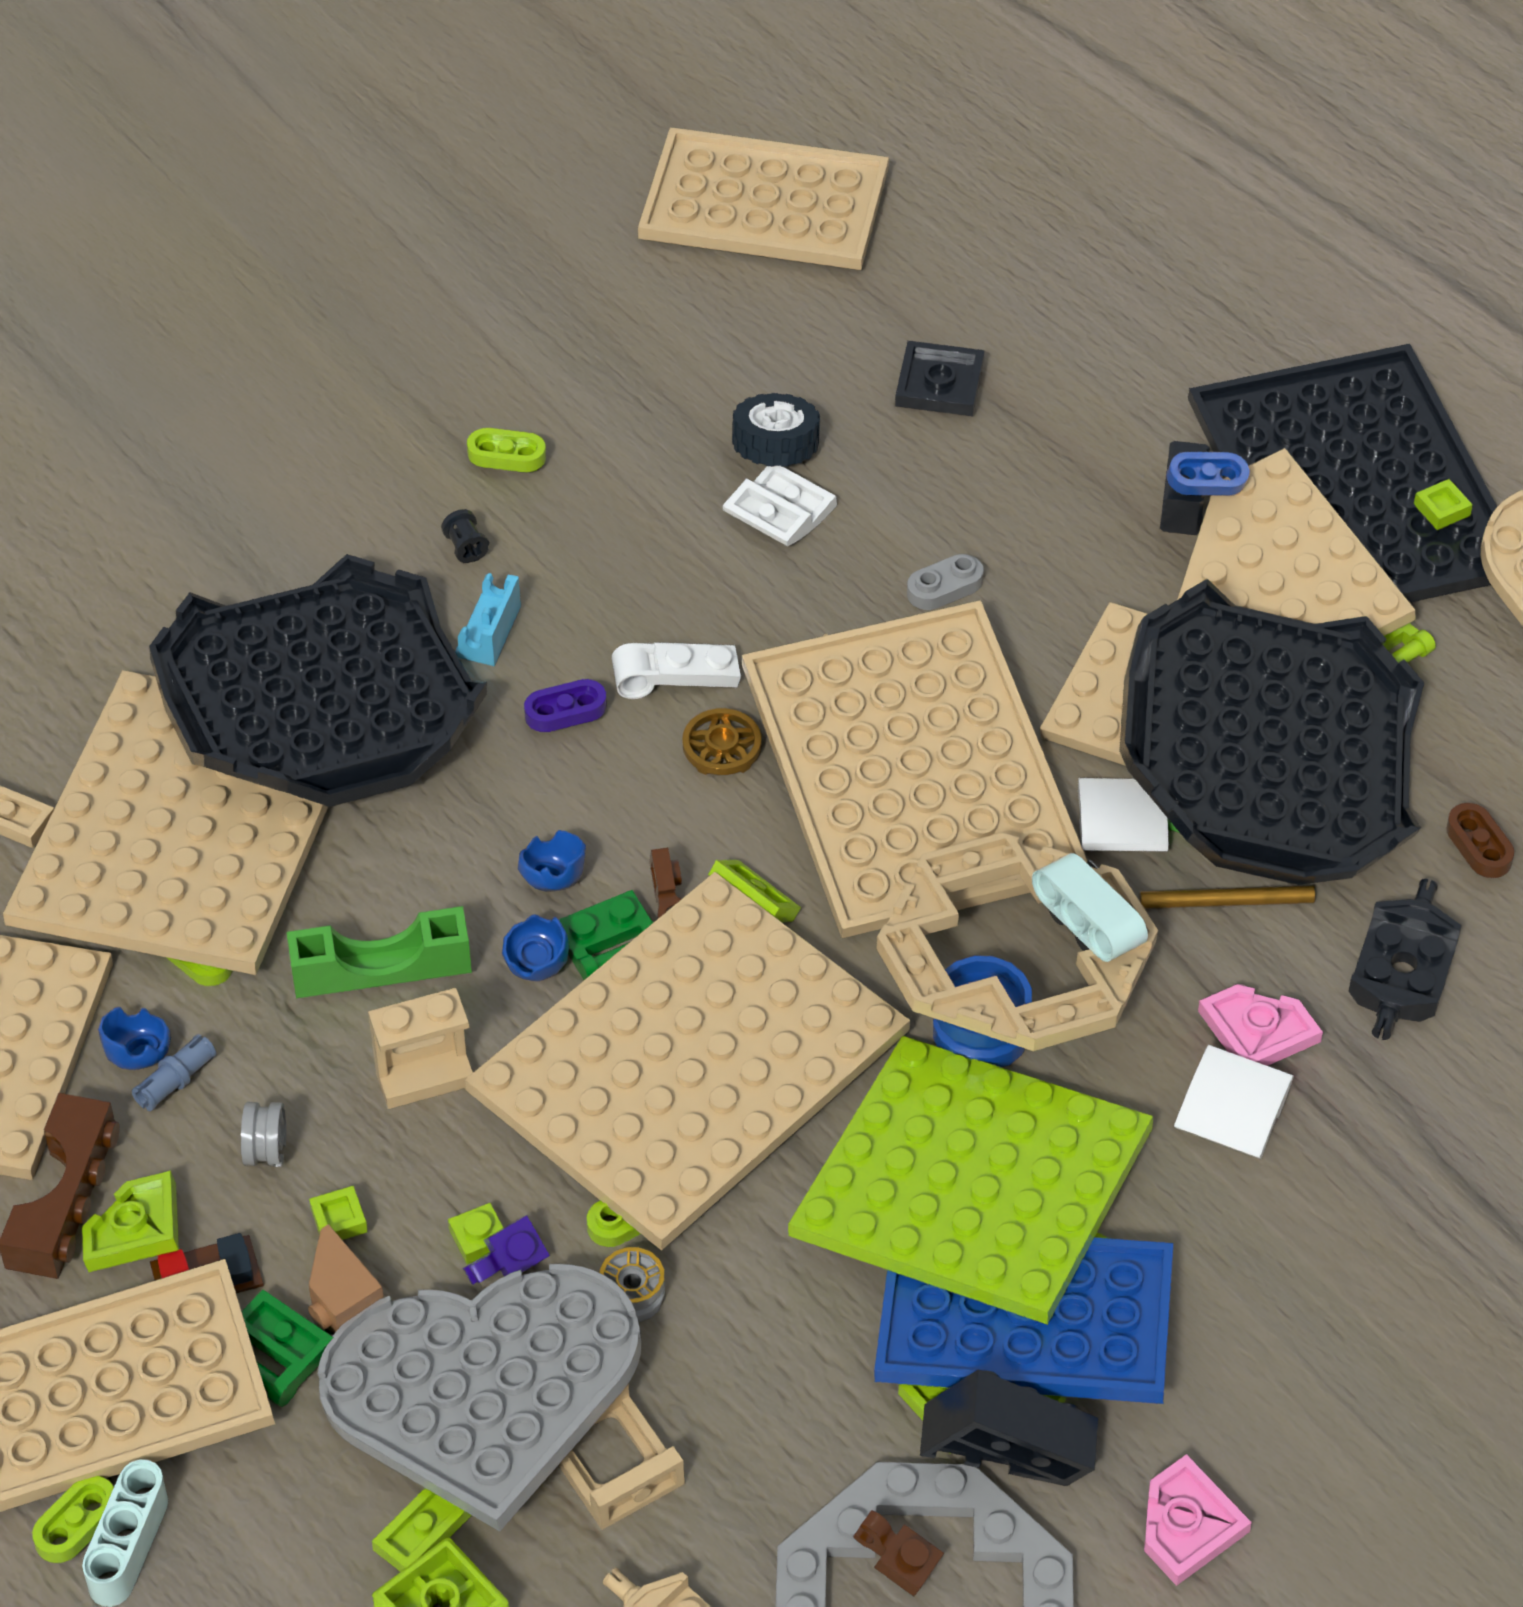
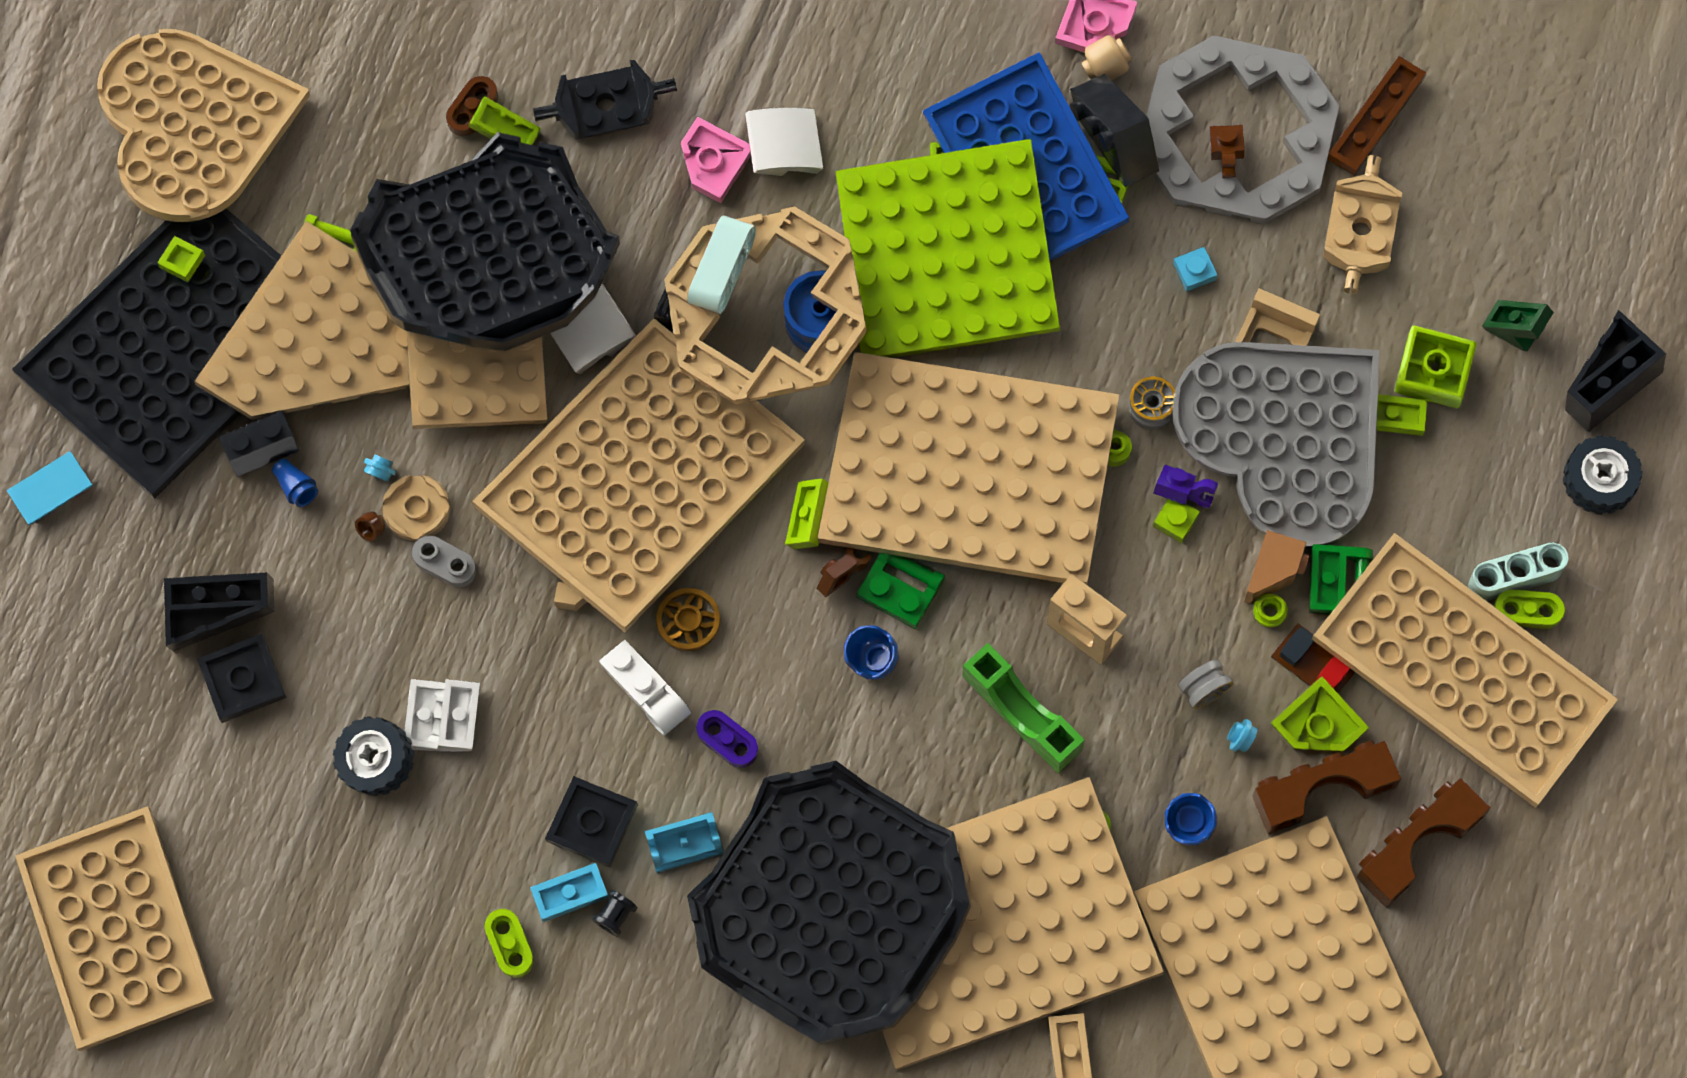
camera: 120 degrees left, 20 degrees up
(174, 1072) = (1194, 781): sand blue pin -> none
(182, 1142) = (1242, 735): none -> medium azure plate
(293, 1248) = (1275, 602): none -> lime plate
(340, 1211) = (1225, 605): lime plate -> none
(516, 514) = (569, 892): none -> medium azure plate
(536, 948) = (949, 615): blue hair -> none
(572, 562) = (591, 821): none -> black plate
(769, 1436) = (1195, 269): none -> medium azure plate
(1023, 587) = (415, 507): none -> tan tile
(1029, 540) = (370, 526): none -> reddish brown hinge
(1032, 379) = (213, 604): none -> black wedge
(1086, 570) = (379, 468): none -> medium azure plate
(1118, 1495) = (1106, 57): none -> tan head
(1121, 501) = (296, 485): none -> blue cone
(1206, 472) = (265, 410): blue plate -> none
(1227, 897) = (625, 246): pearl gold bar -> none
(1255, 327) = (49, 488): none -> medium azure piece
(1430, 851) = (494, 118): none -> lime plate

